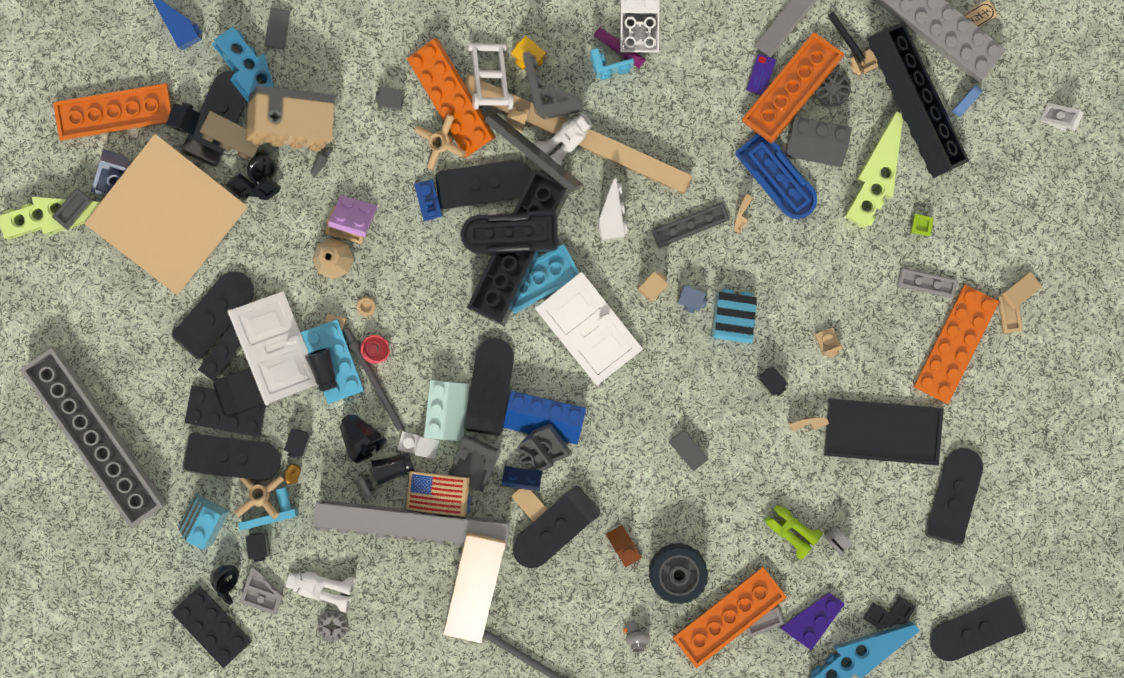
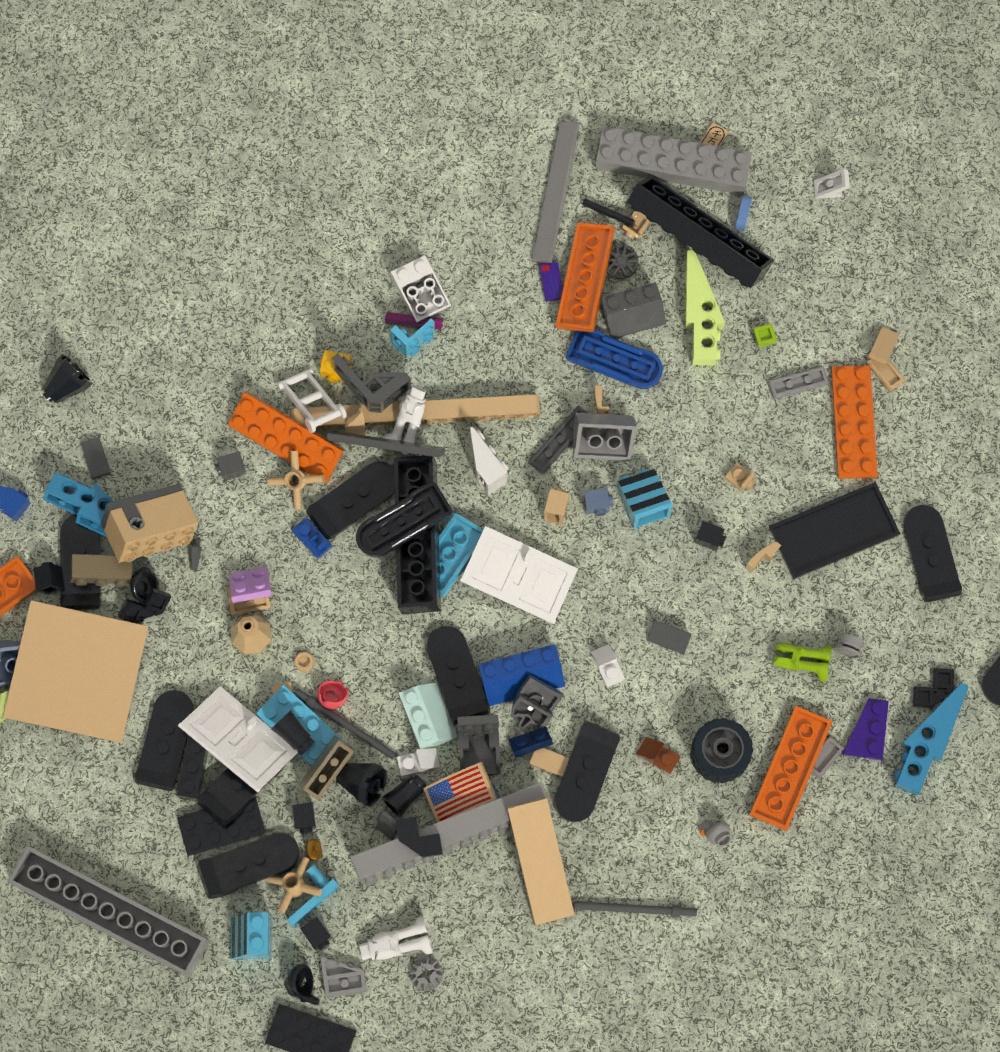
camera: 30 degrees left, 15 degrees down
(336, 412) = (326, 767): none -> dark tan brick
(372, 513) = (423, 846): none -> black tile
(623, 446) = (607, 665): none -> white slope
(729, 243) = (603, 436): none -> light grey slope

